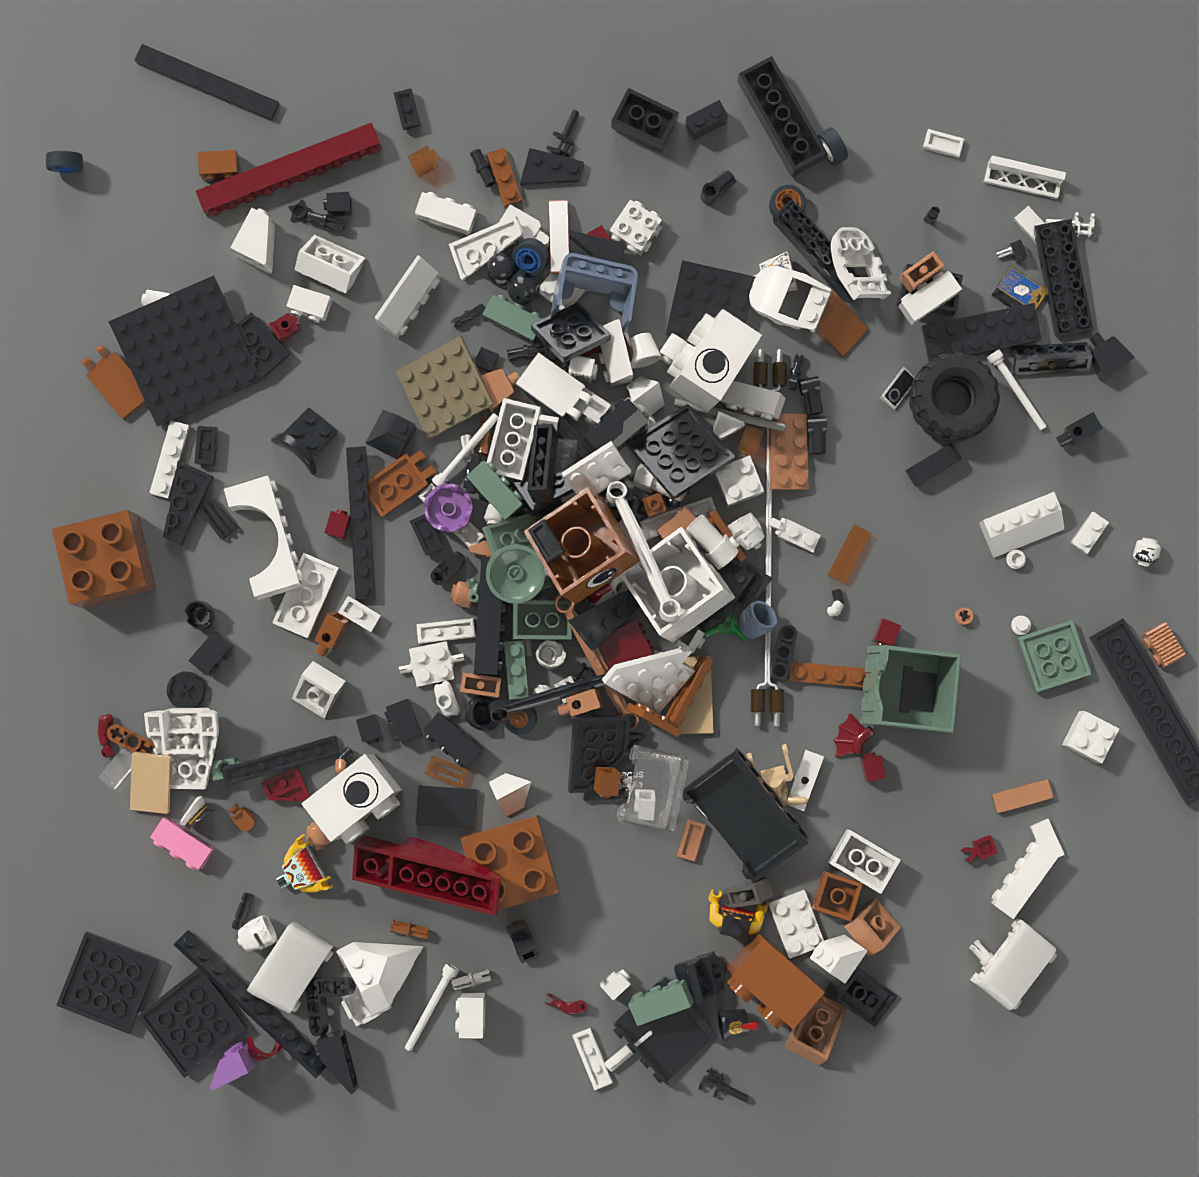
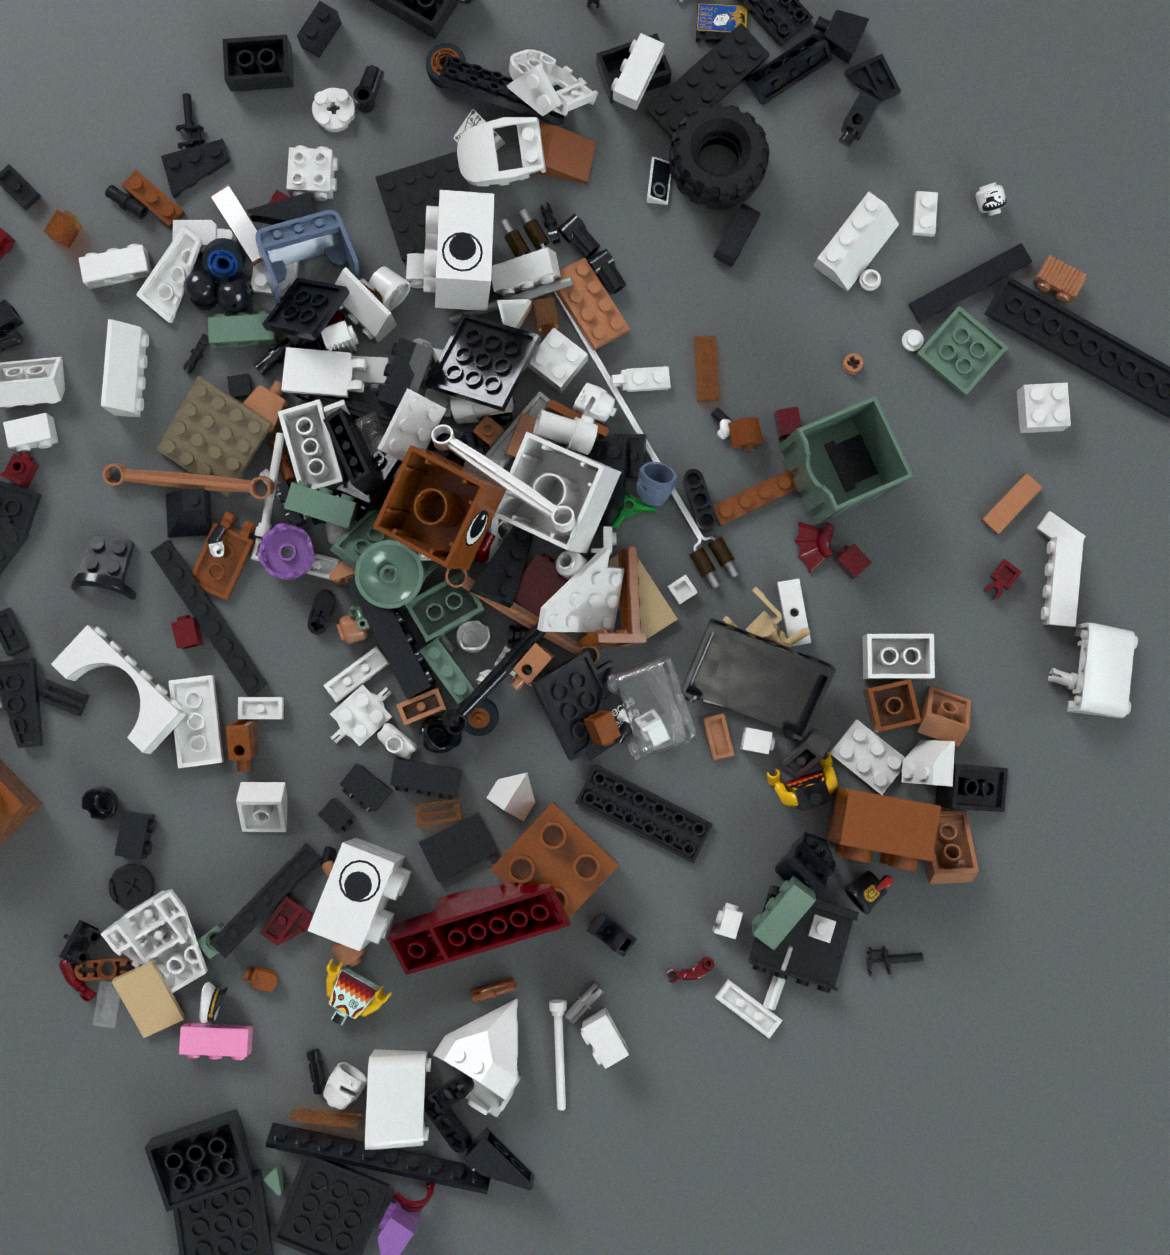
camera: 30 degrees left, 0 degrees up
(120, 925) = (200, 1160): none -> black slope
(124, 709) = (79, 942): none -> black hips
(165, 973) = (275, 1180): none -> sand green slope
(229, 949) = (326, 1117): none -> clear orange tile
(399, 469) = (215, 541): none -> arm
(405, 410) = (187, 480): none -> nougat piece
(426, 535) = (281, 592): black plate -> none
(546, 540) = (400, 522): black tile -> none
(600, 864) = (644, 813): none -> black plate
(647, 393) = (418, 325): white slope -> none
(655, 644) = (569, 563): none -> white head
(675, 178) = (343, 116): none -> white plate
(683, 1031) = (821, 928): none -> white plate
(718, 861) = (757, 741): none -> white brick
(730, 712) = (682, 589): none -> white plate
(842, 268) = (536, 90): none -> white wing
(848, 622) = (745, 433): none -> dark orange brick
(921, 272) = (615, 50): nougat brick -> none
(997, 359) = (737, 98): white piece -> none
(1092, 607) = (970, 283): none -> black tile
(1113, 405) = (874, 78): none -> black wing

